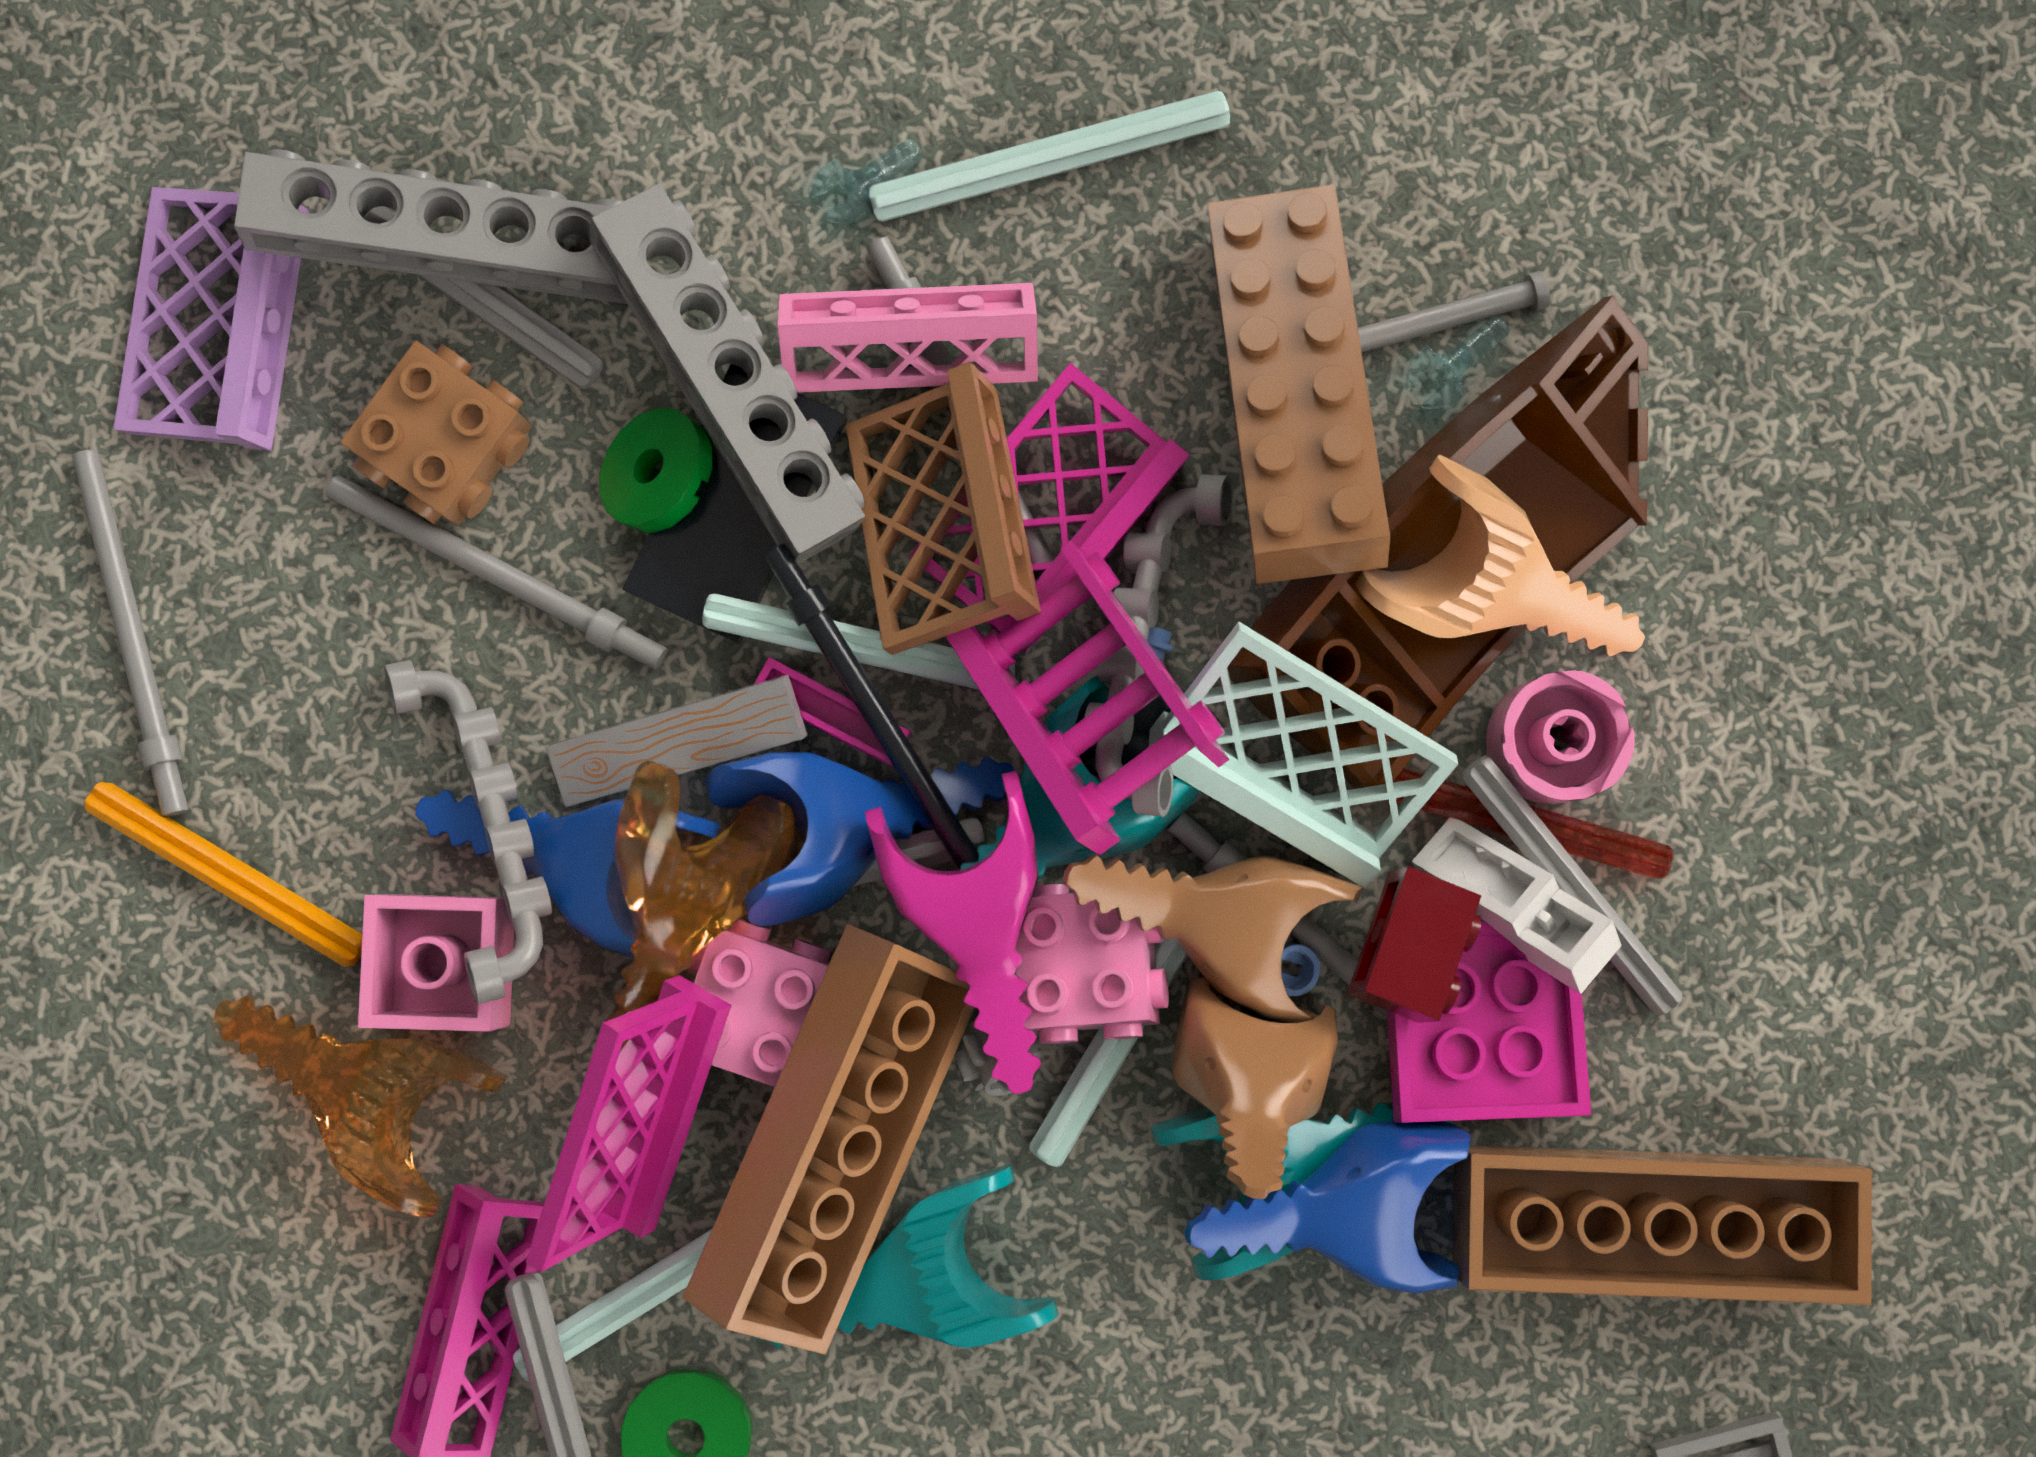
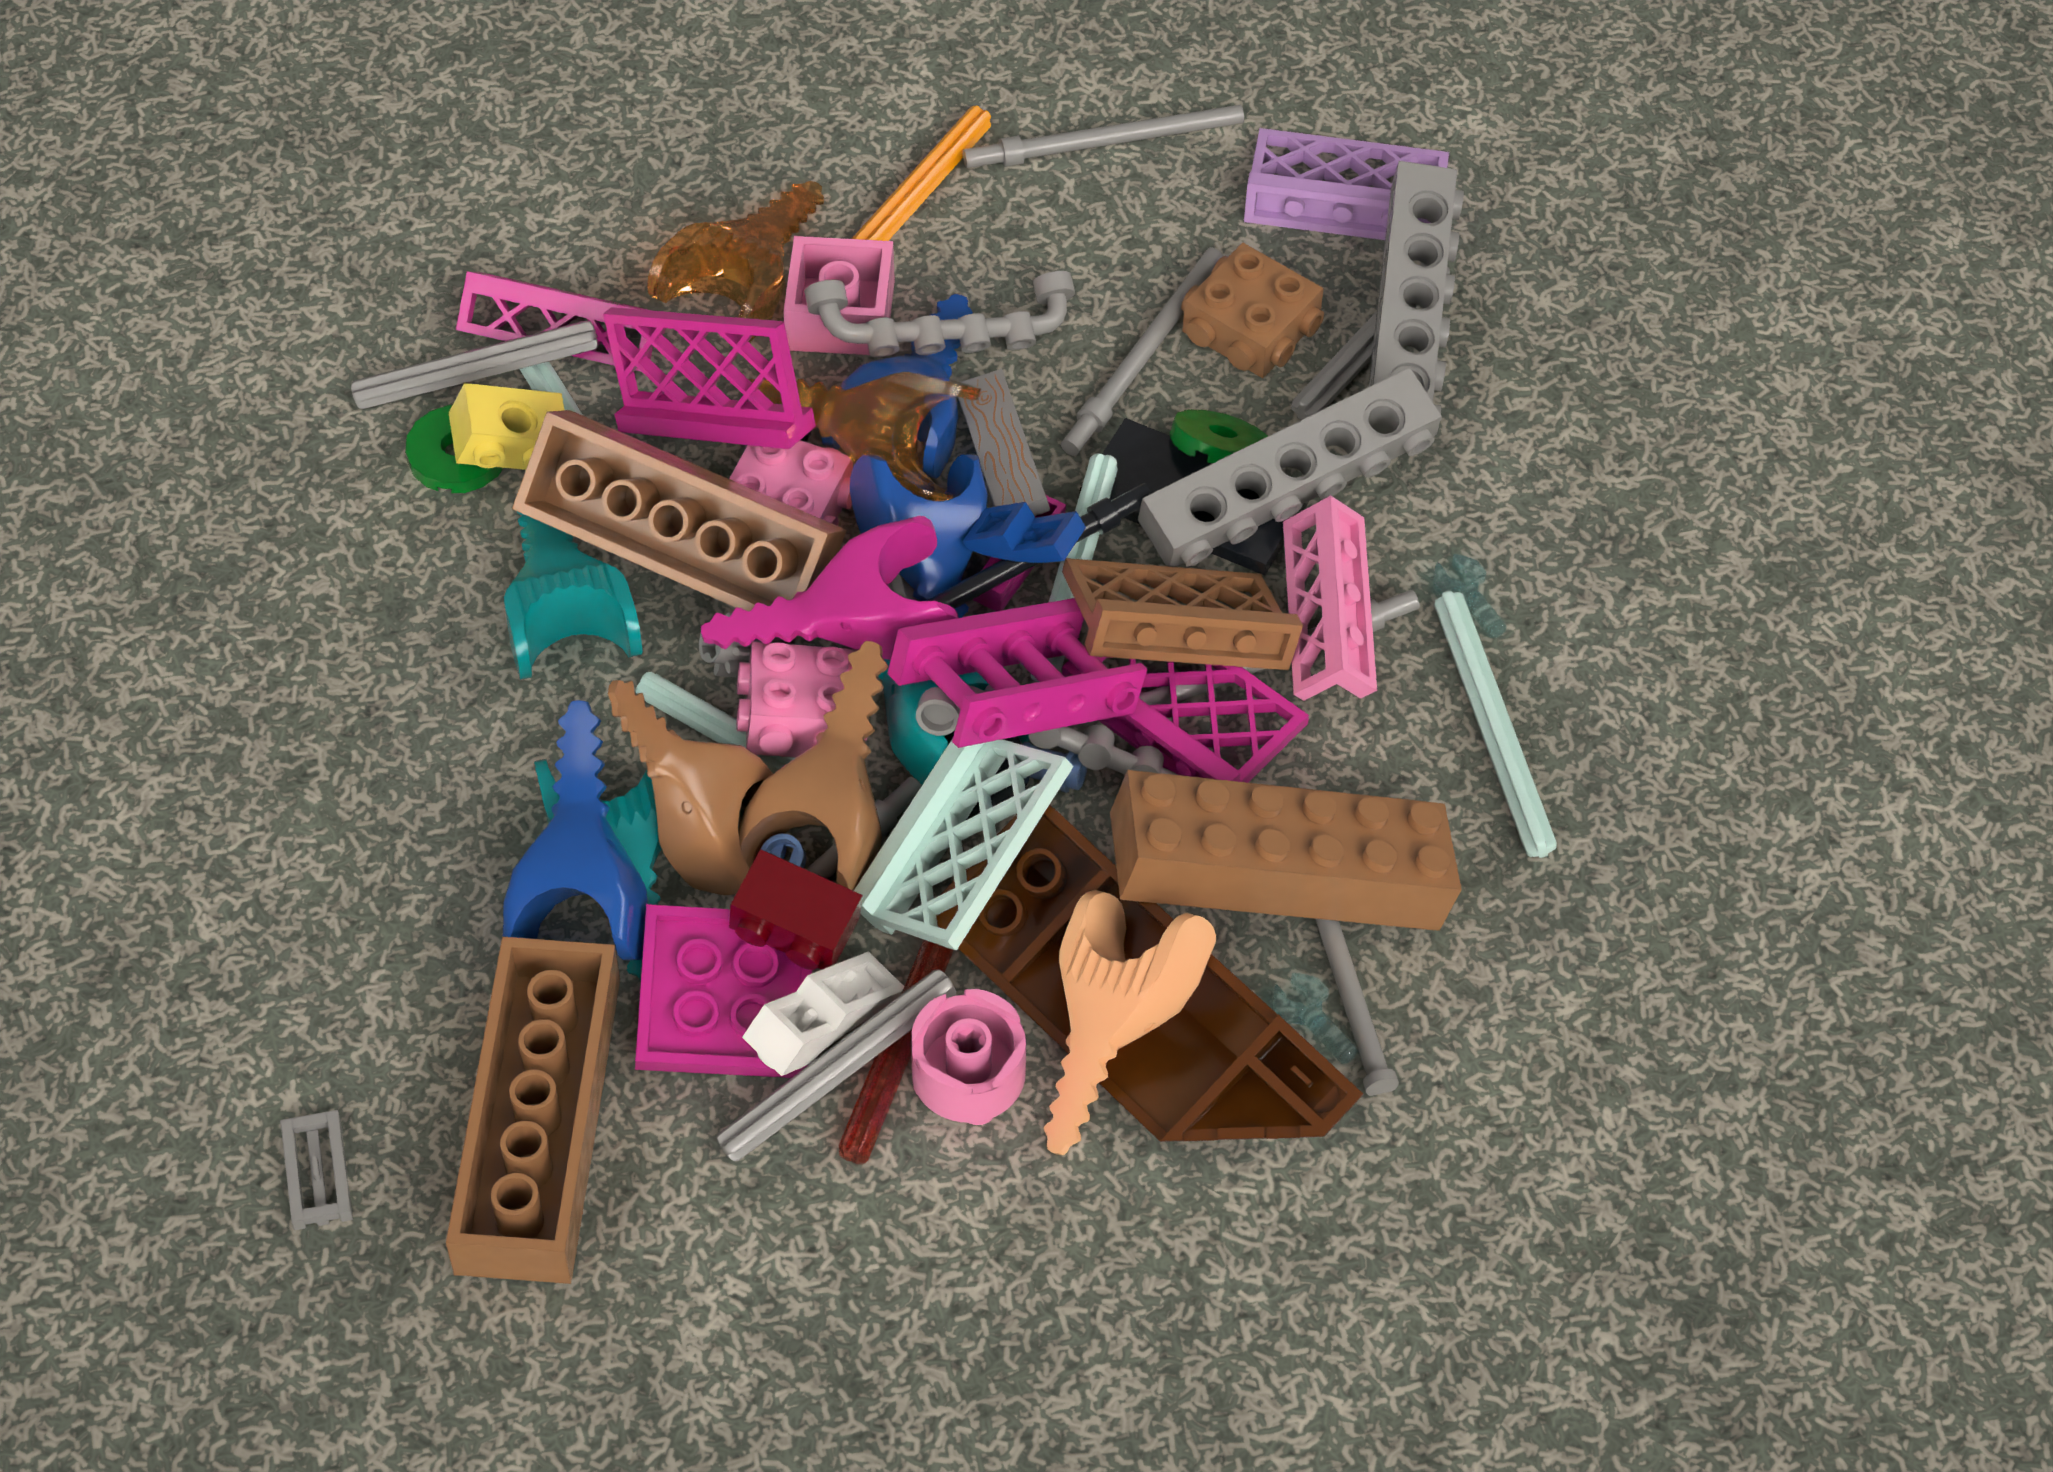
camera: 90 degrees right, 30 degrees down
(685, 1415) = (499, 424): none -> light yellow brick
(850, 700) = (1017, 536): none -> blue slope

